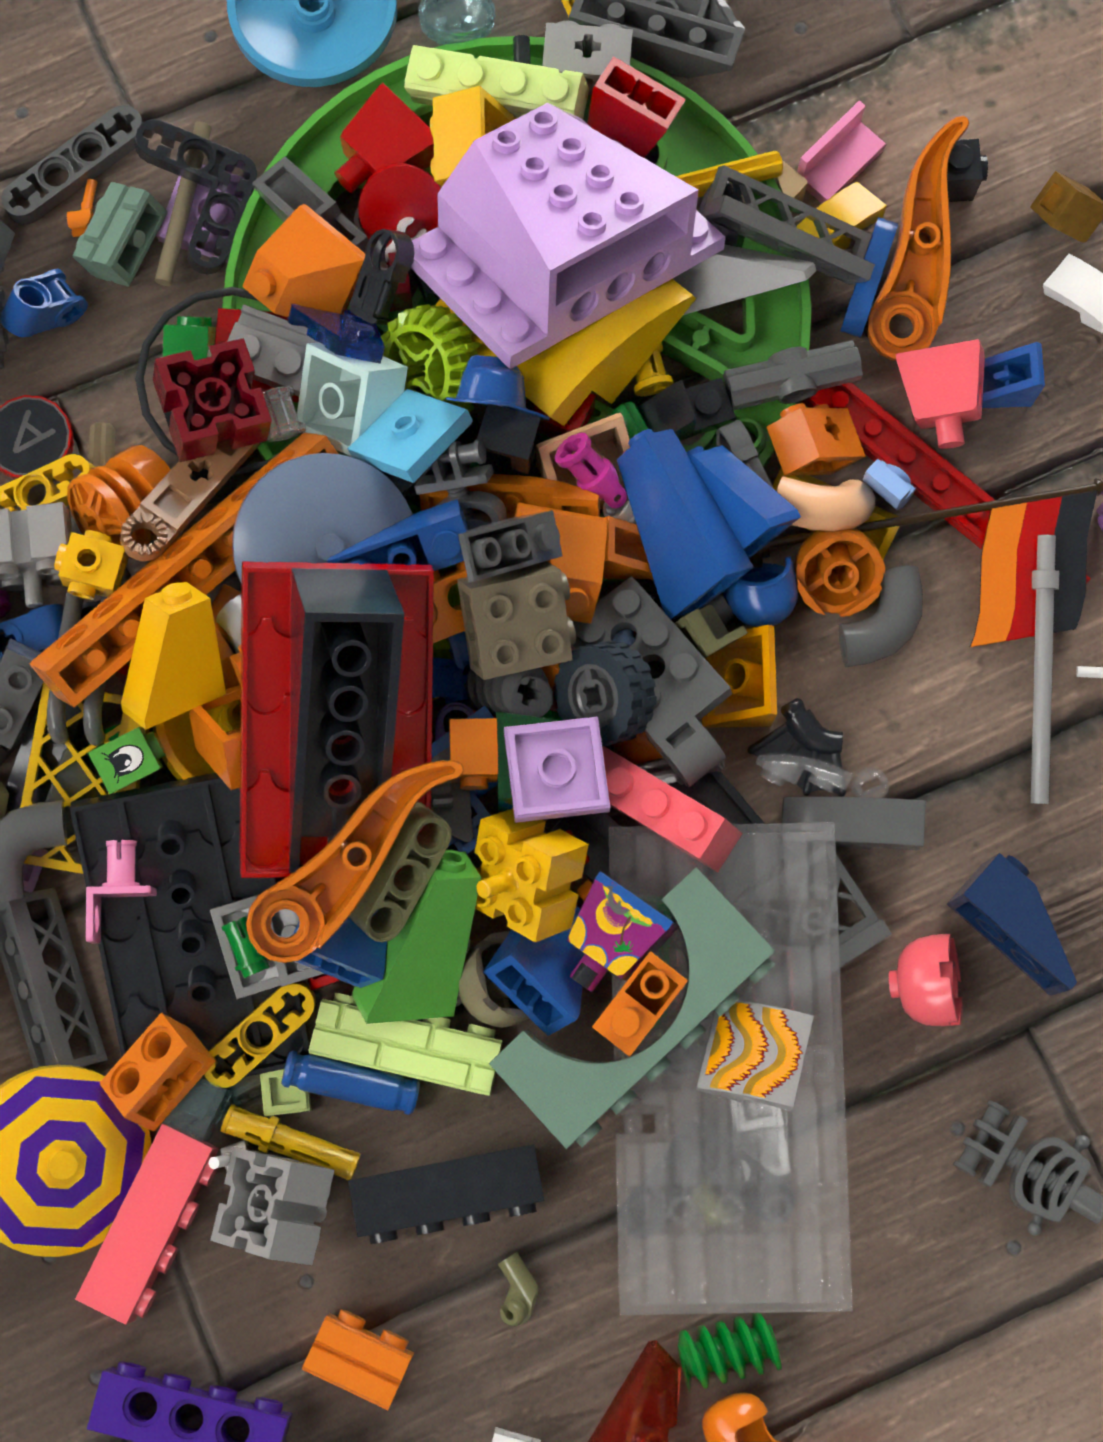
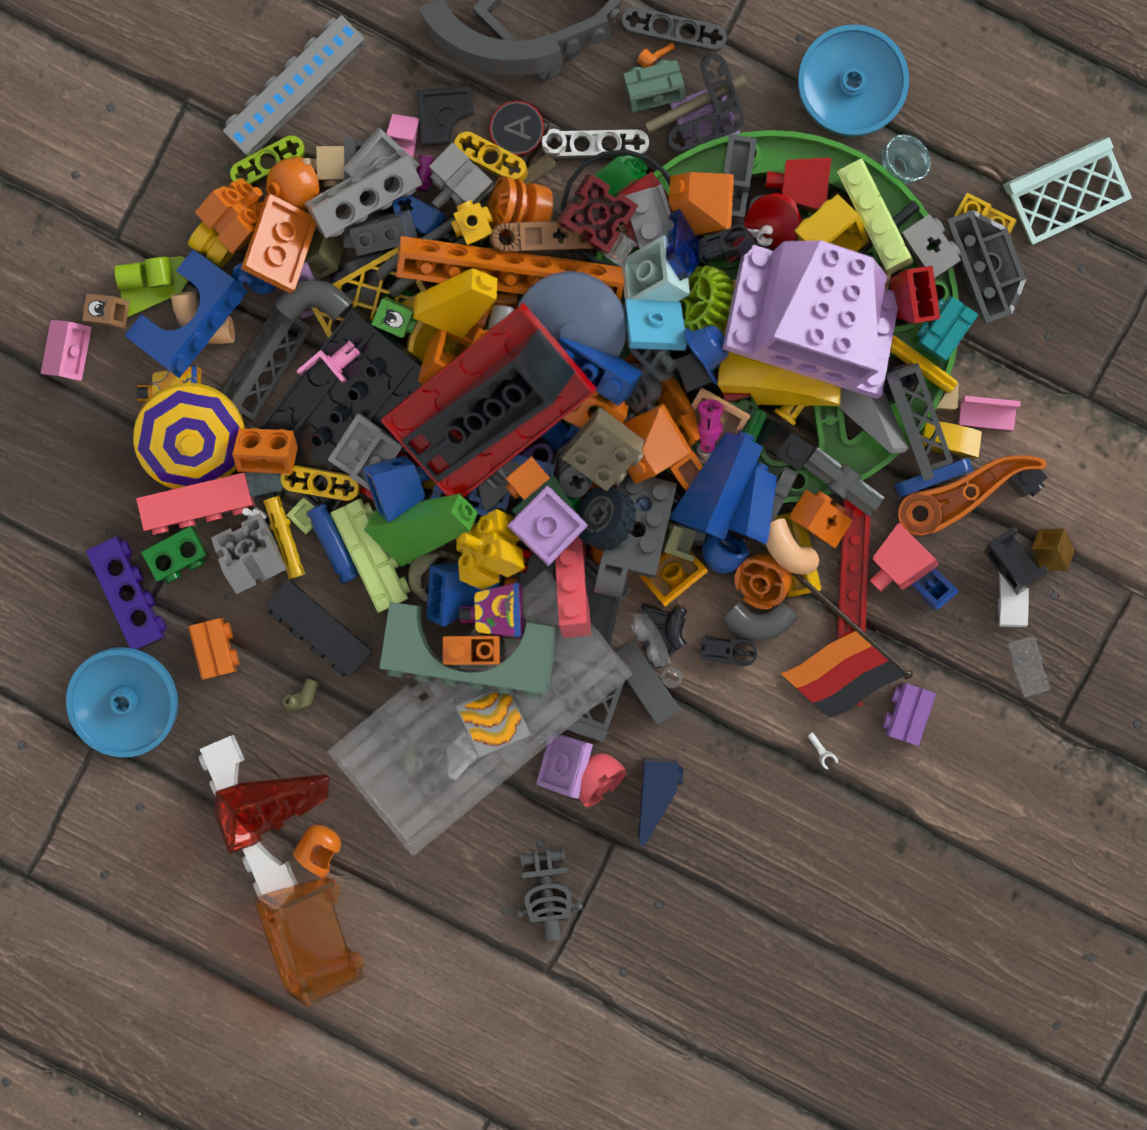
camera: 55 degrees right, 10 degrees up
(41, 304) = (586, 78): blue piece -> none
(119, 356) = (595, 138): none -> white beam
(183, 1303) = (173, 549): none -> green brick
(247, 957) = (353, 446): green pin -> none
(339, 876) = (420, 467): orange animal -> none
(399, 893) = (441, 490): olive beam -> none
(510, 545) = (633, 419): dark grey slope -> none
(706, 119) = (944, 334): none -> teal brick
(727, 1350) = (350, 813): green piece -> none
(885, 1010) = (564, 765): none -> lavender tile
(888, 693) = (722, 651): none -> black piece
(889, 483) = (828, 571): light blue slope -> none
(1044, 581) = (838, 685): light grey bar -> none
(1051, 263) = (1014, 562): none -> black panel

